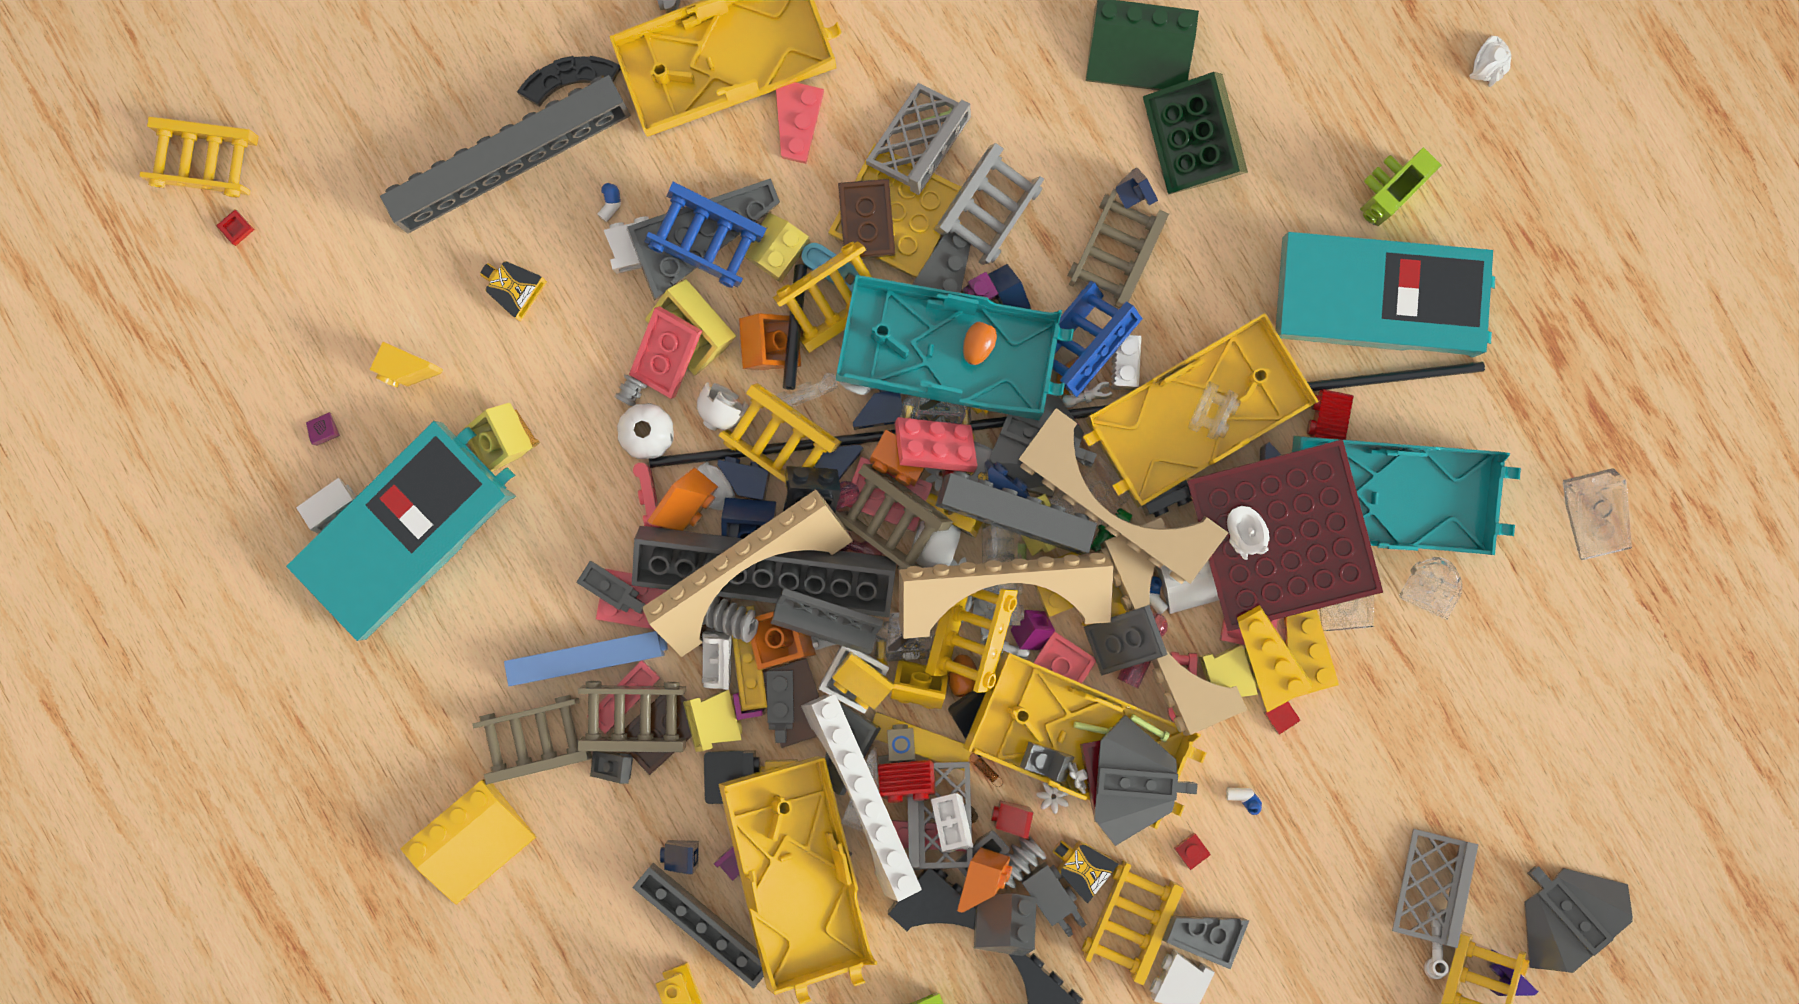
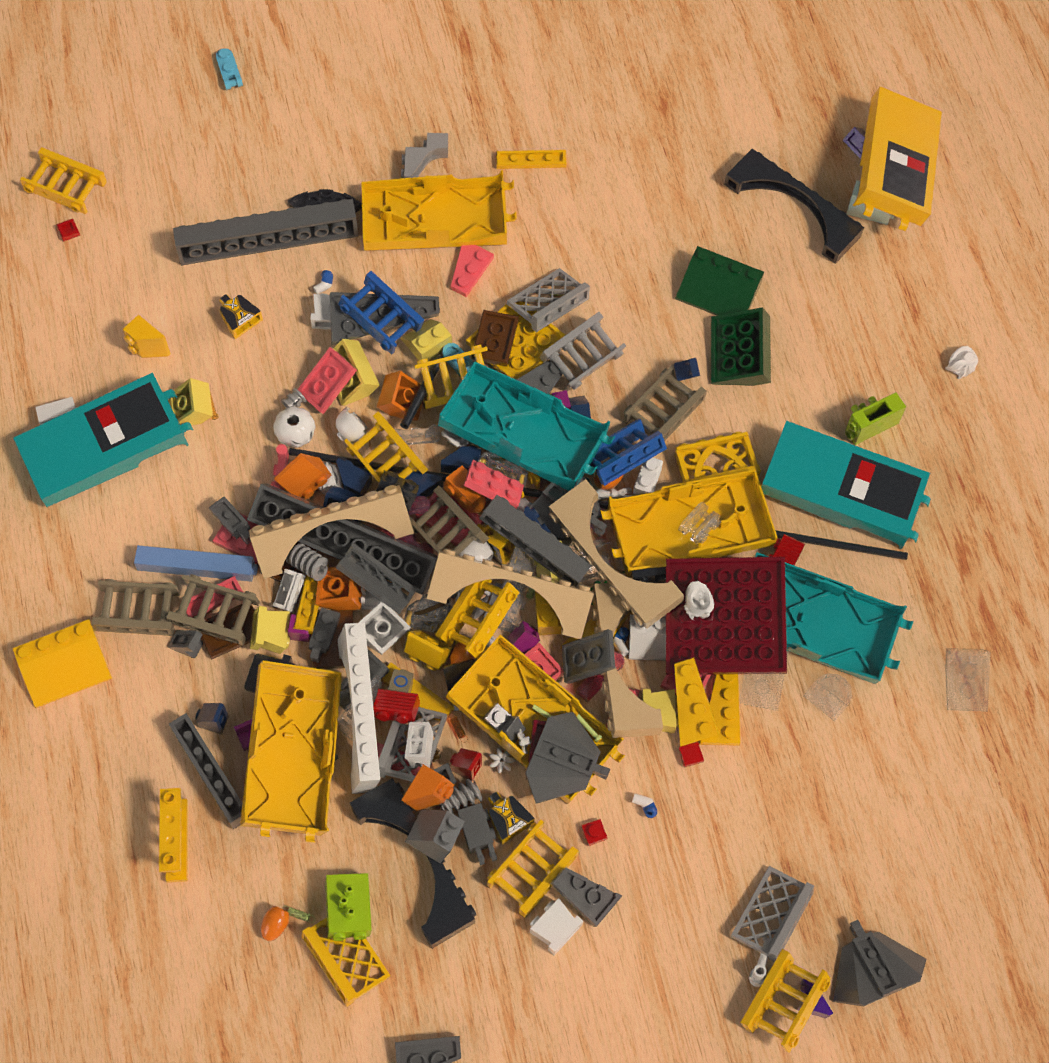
camera: 15 degrees right, 20 degrees down
(322, 429) = (73, 367): magenta slope -> none
(862, 681) = (387, 623): yellow slope -> none
(979, 342) = (546, 428): orange animal -> none
(1243, 312) = (717, 446): none -> yellow fence

